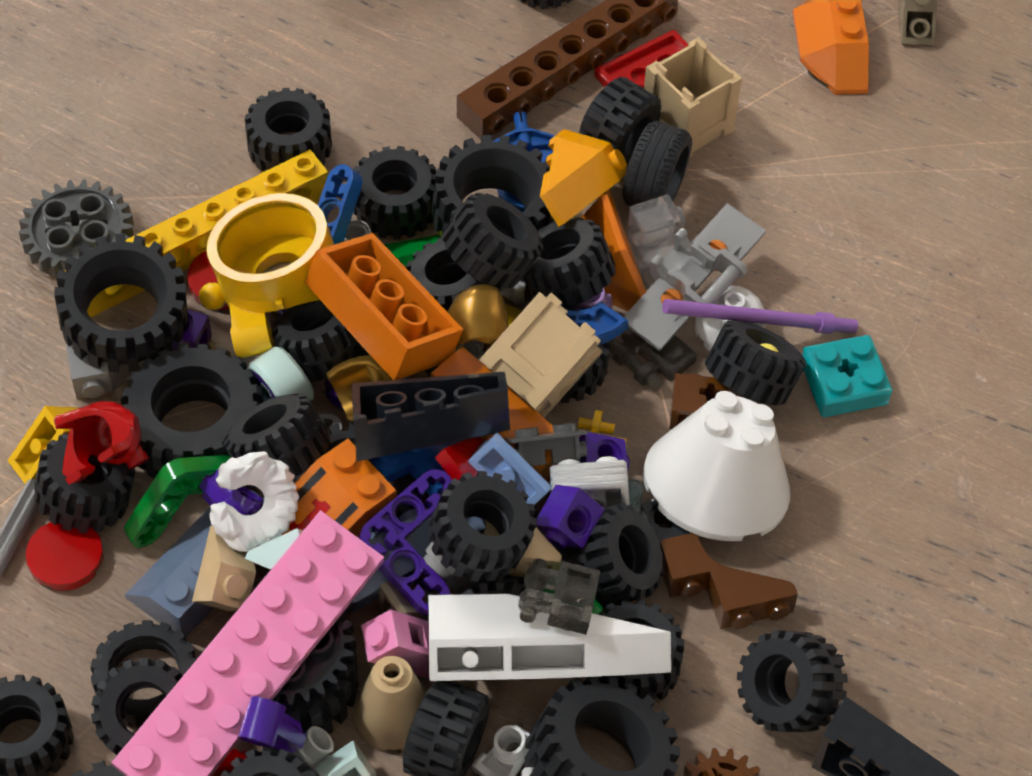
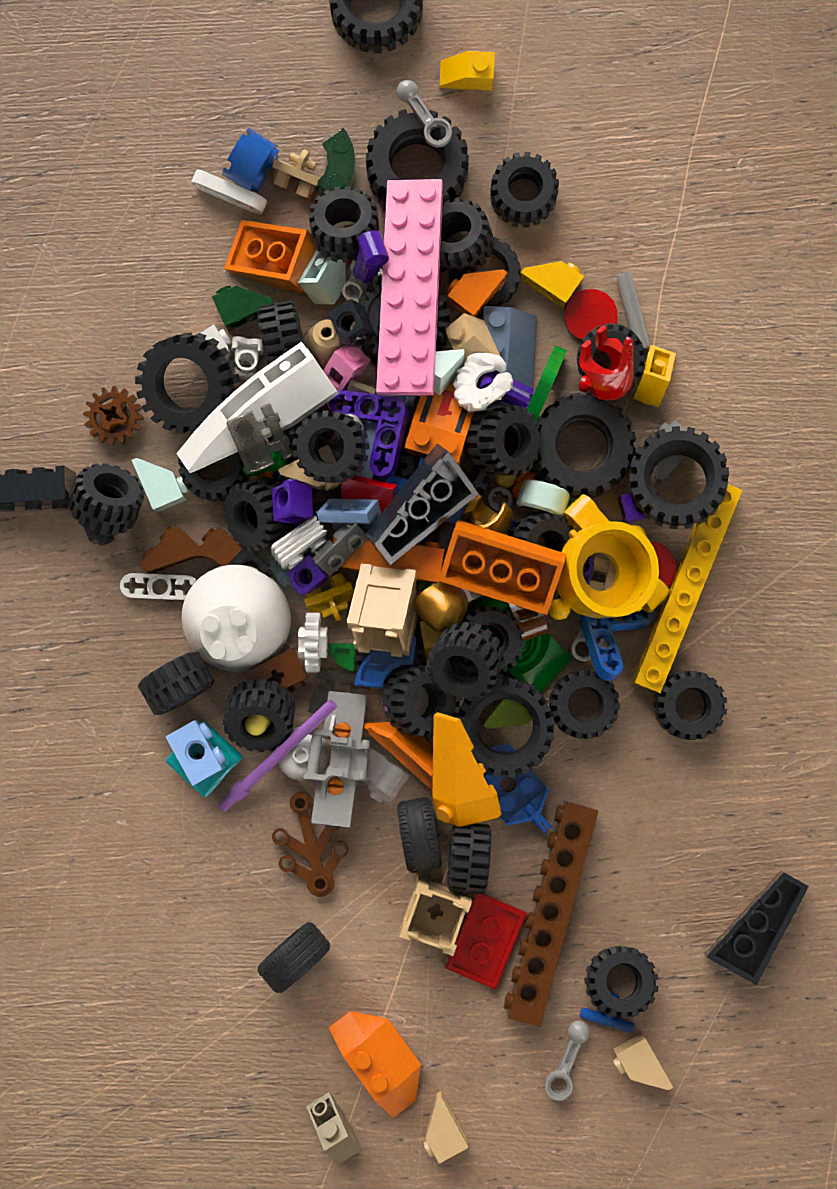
camera: 150 degrees right, 30 degrees up
(69, 220) = (785, 555): dark grey gear -> none
(71, 609) = (553, 280): none -> yellow slope
(171, 636) = (475, 290): none -> orange slope
(339, 669) = (344, 316): none -> black brick
(616, 388) = (343, 655): none -> green tile
(644, 400) = (313, 642): none -> white gear
(713, 677) = (160, 485): none -> light aqua slope
(781, 235) = (311, 849): none -> reddish brown plant
(781, 559) = (140, 578): none -> white beam
(831, 444) = (176, 683): none -> black tyre
(857, 345) = (181, 744): none -> light blue brick
(863, 121) = (294, 957): none -> black tyre

